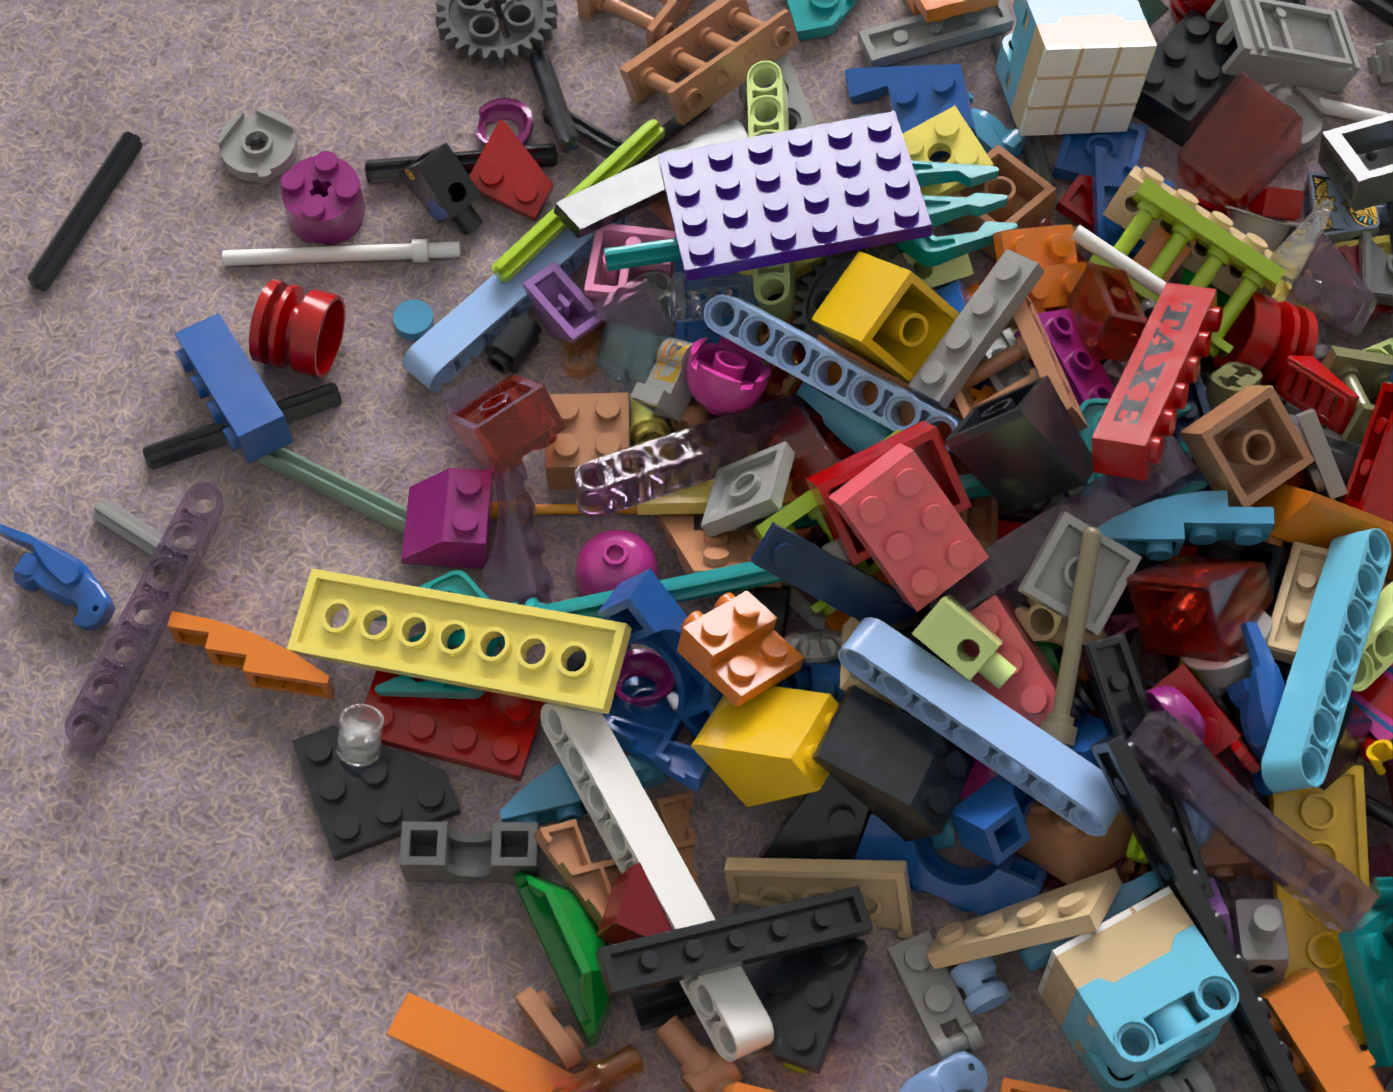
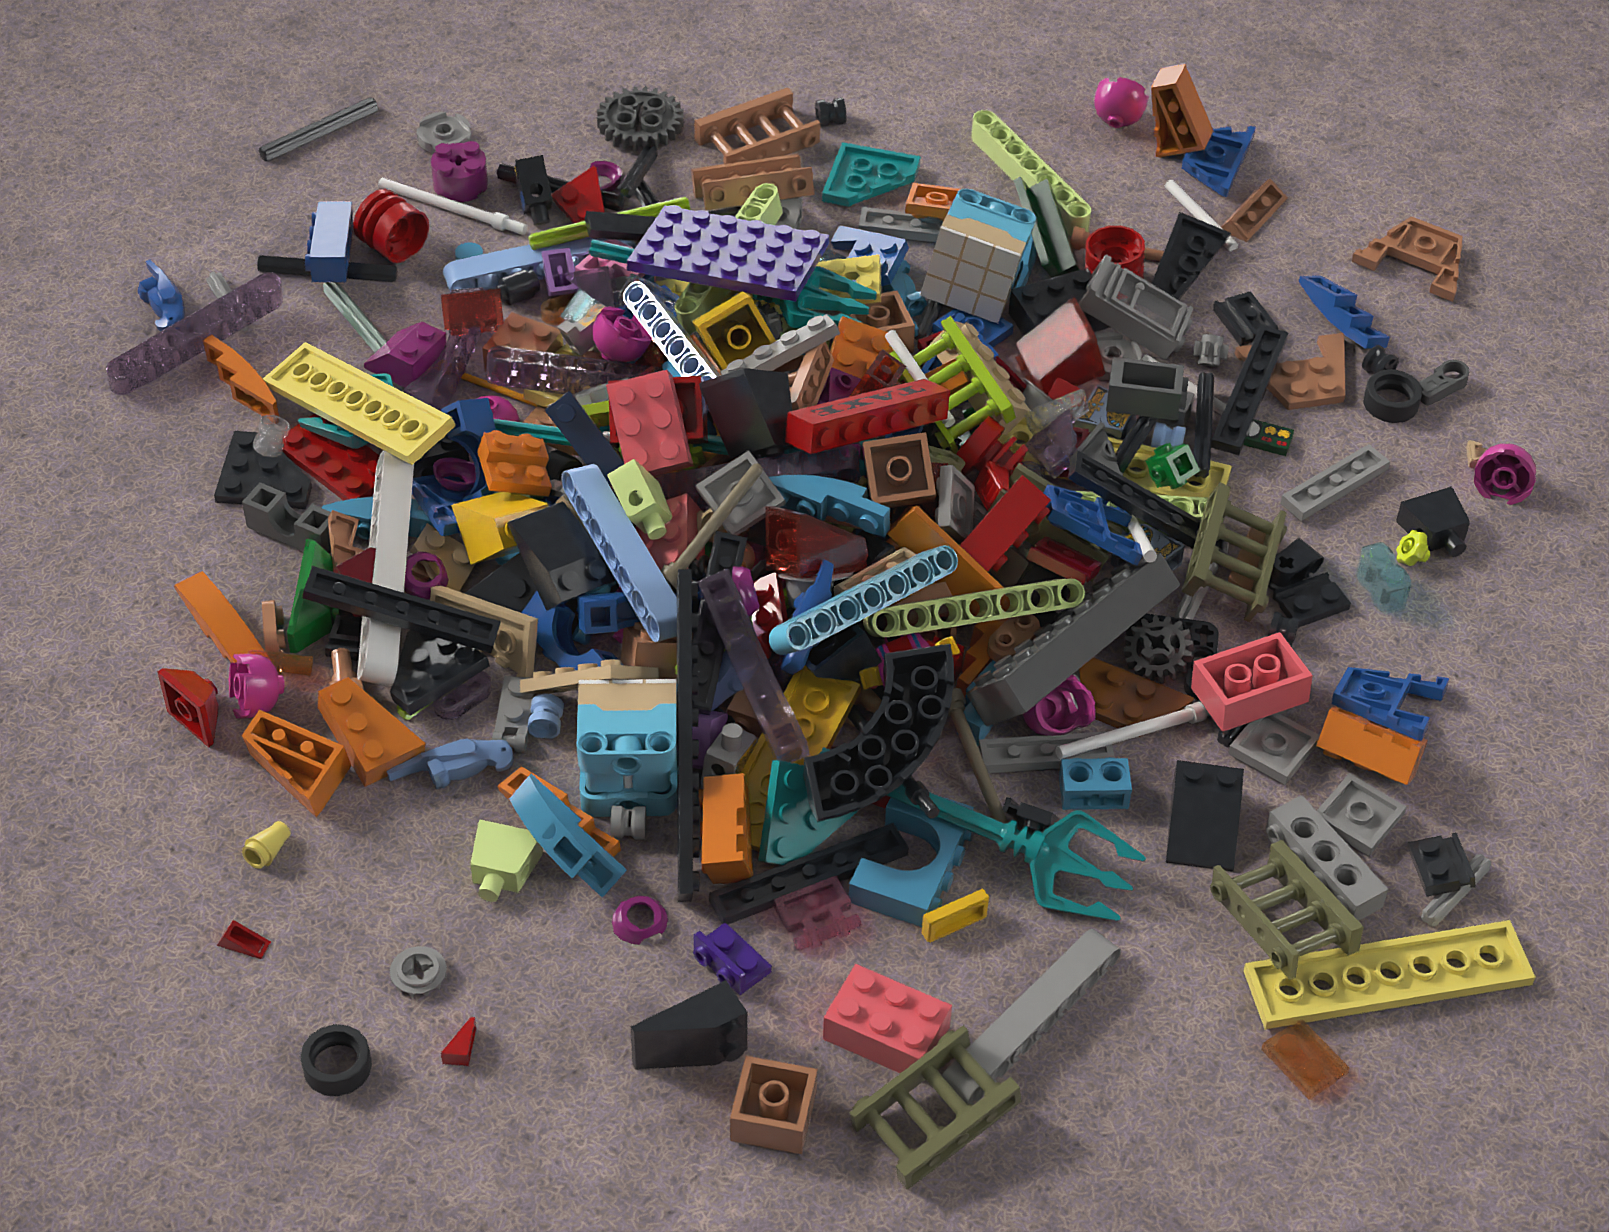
camera: 25 degrees right, 15 degrees down
(686, 827) = (419, 588): none -> magenta piece
(702, 816) = (449, 551): none -> tan wing

